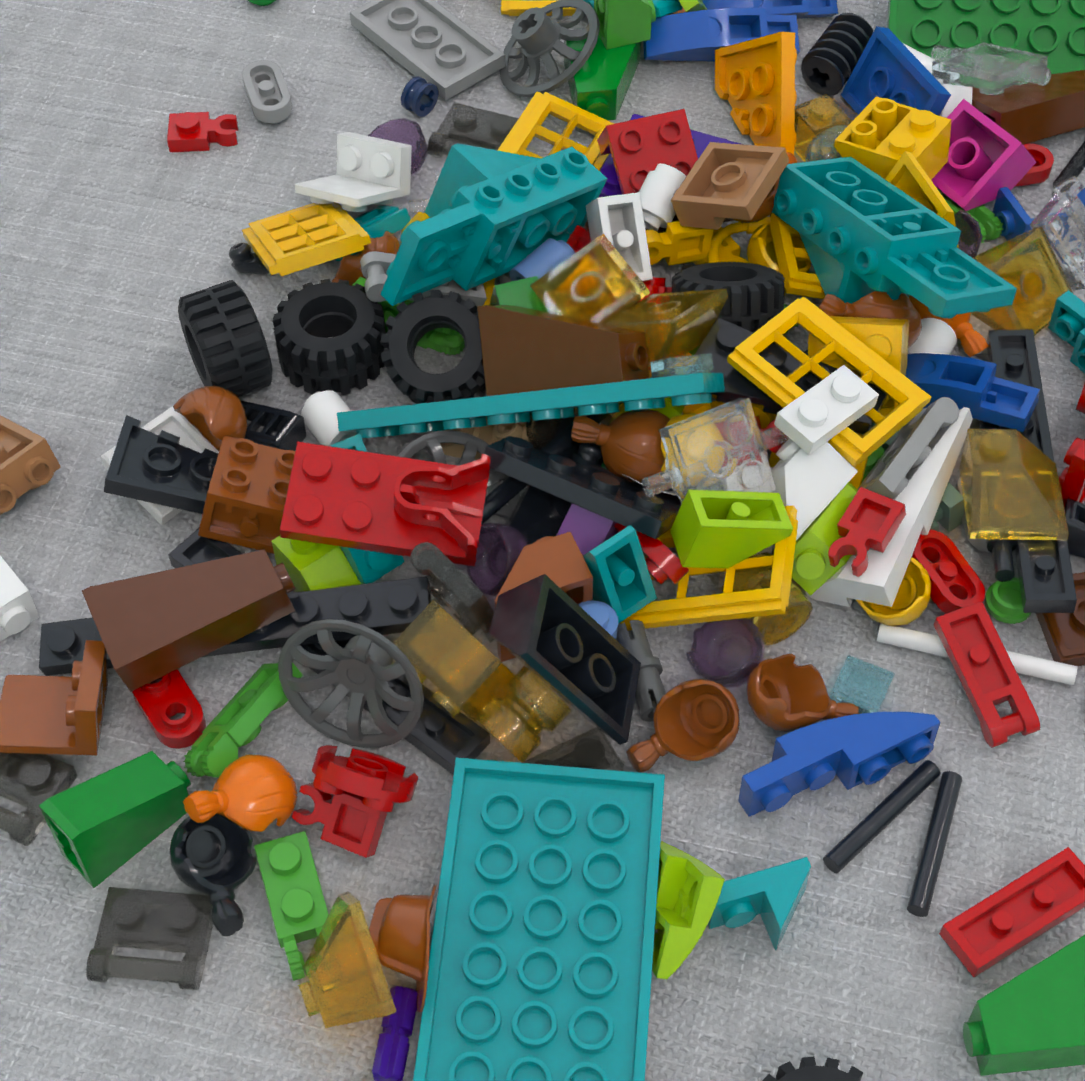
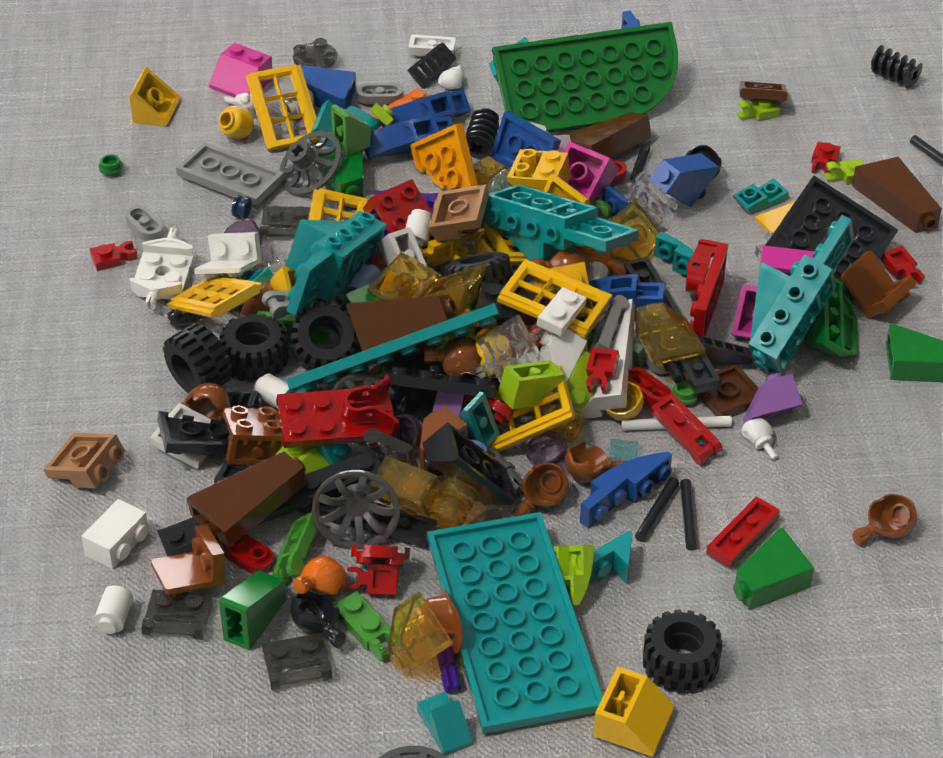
camera: 20 degrees left, 10 degrees down
(268, 152) = (160, 257): none -> white plate
(682, 365) = (475, 305): clear light blue tile -> none
(989, 67) = (574, 122): clear plate -> none

